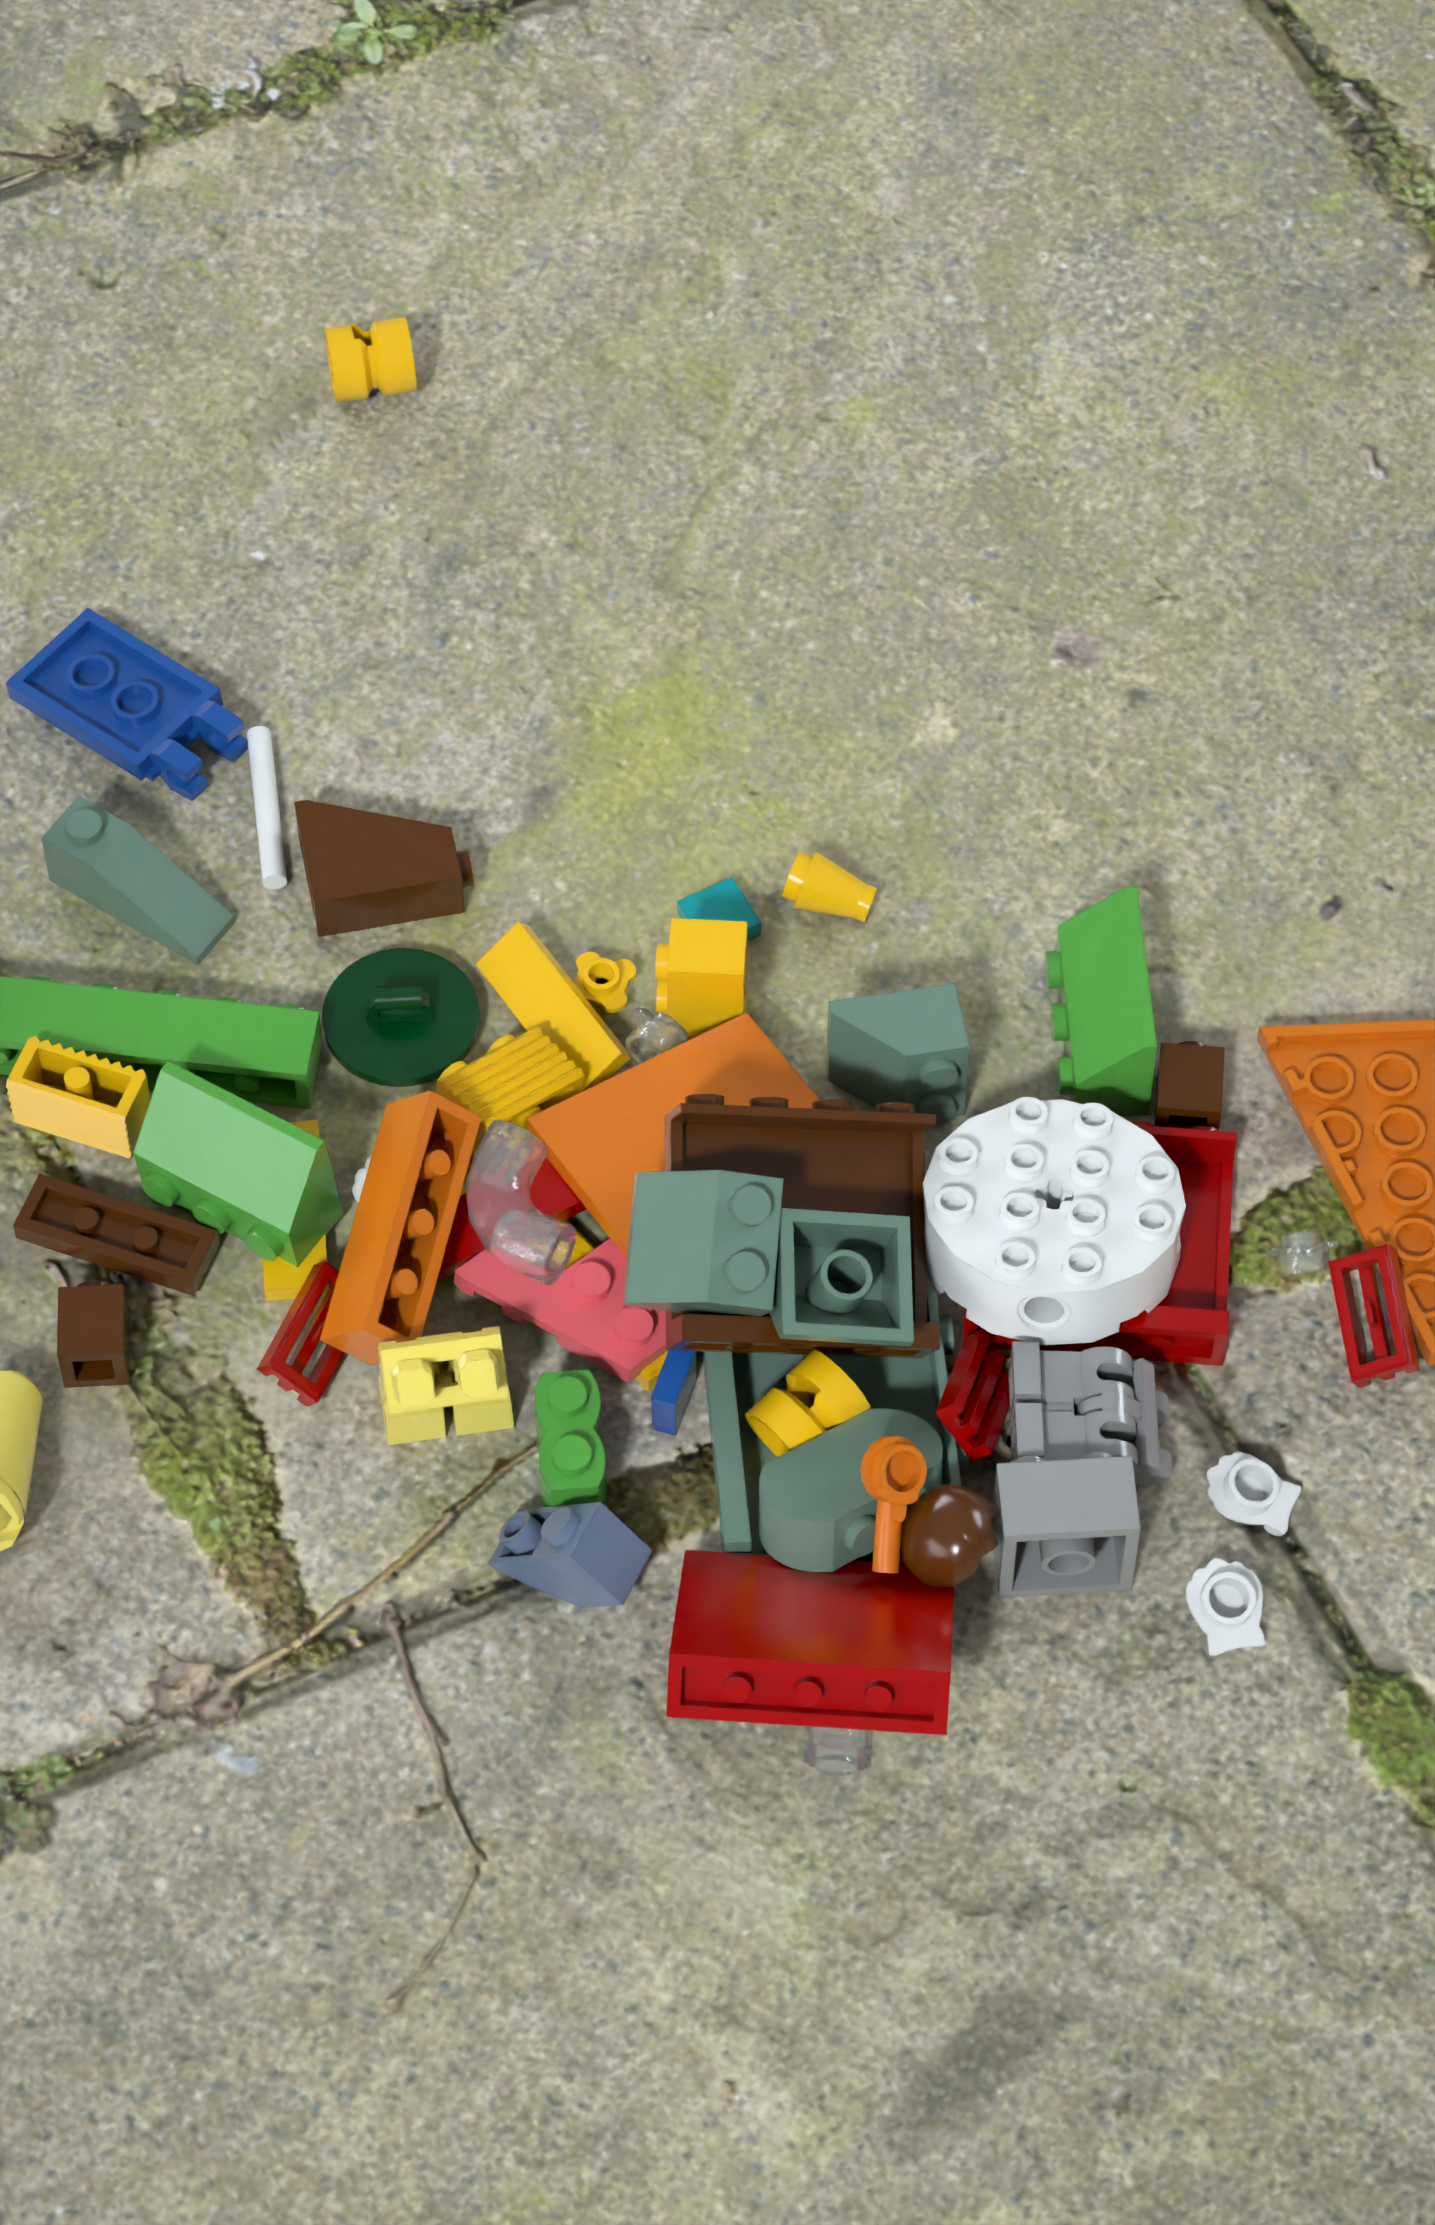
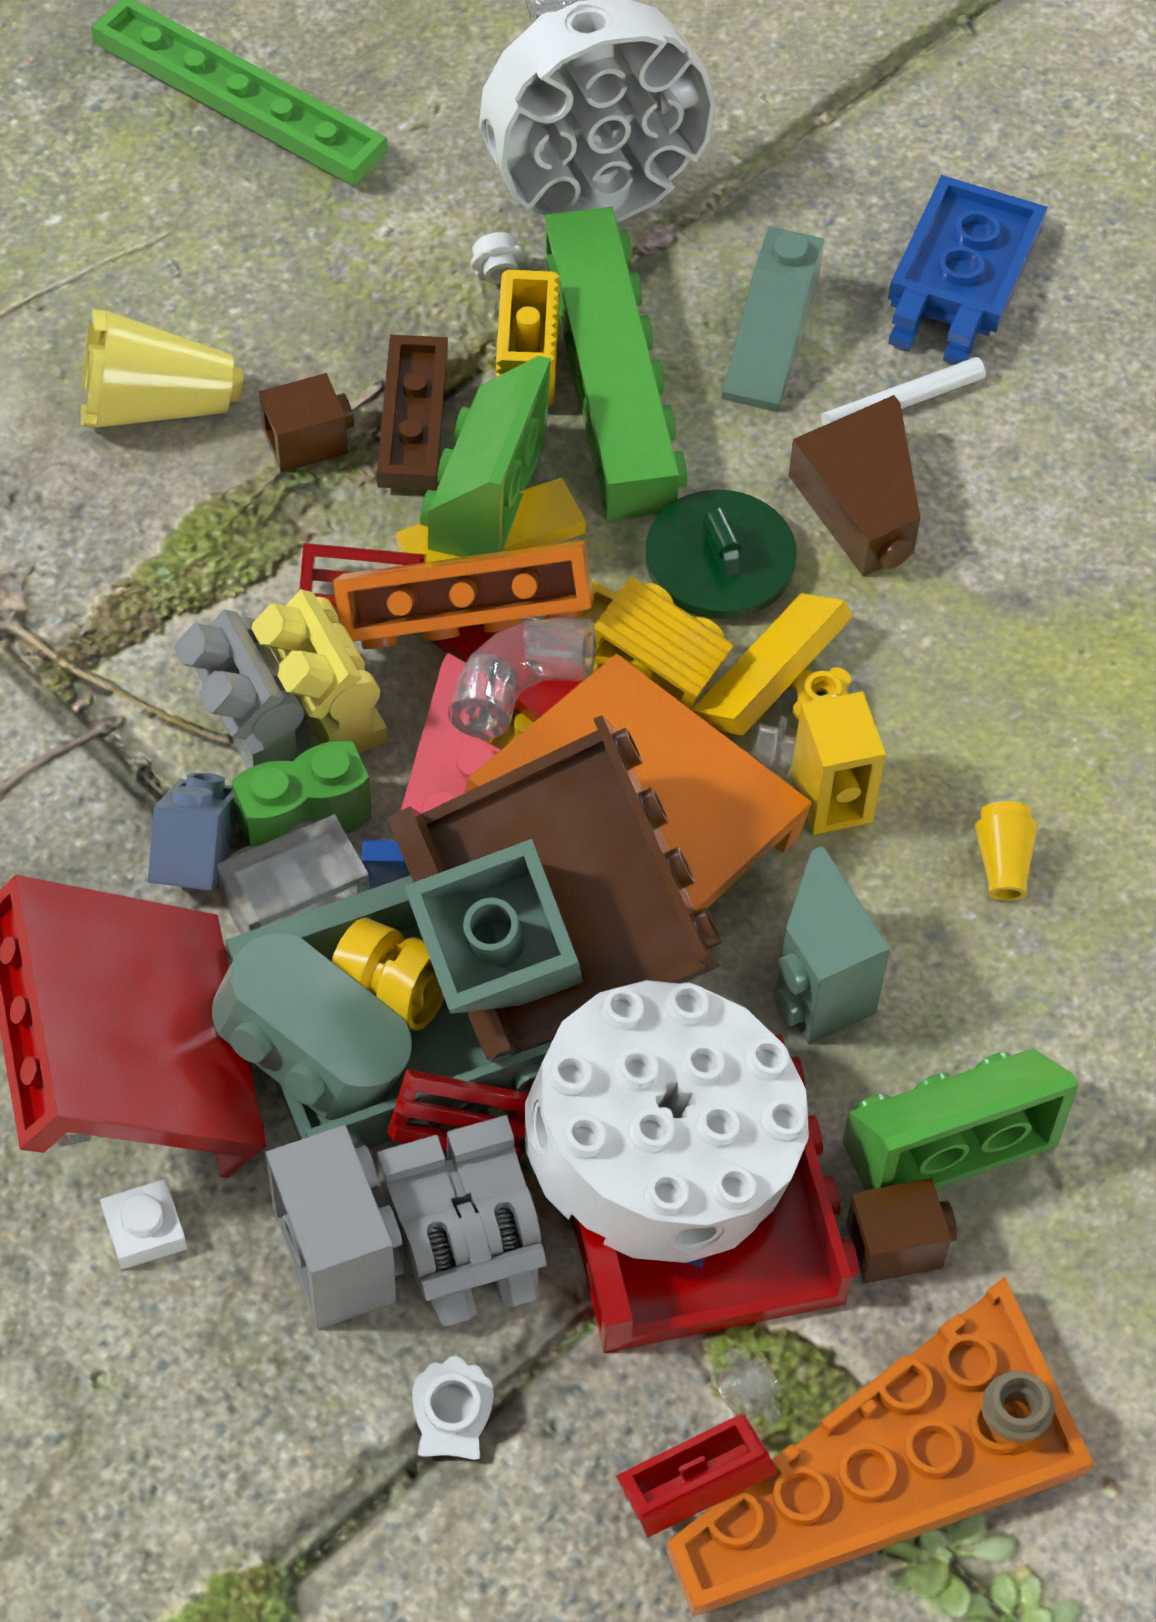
camera: 70 degrees right, 0 degrees up
(443, 1445) = (244, 689): none -> light grey hips
(662, 1480) = (291, 874): none -> clear brick
(703, 1242) = (487, 797): sand green slope -> none
(720, 902) = (939, 772): teal tile -> none
(893, 1475) = (299, 1033): orange plate -> none
(947, 1534) = (269, 1105): reddish brown hair -> none
(984, 1706) = (143, 1224): none -> white plate
(1227, 1605) = (313, 1416): white animal -> none
(1394, 1036) = (1023, 1388): none -> dark tan plate

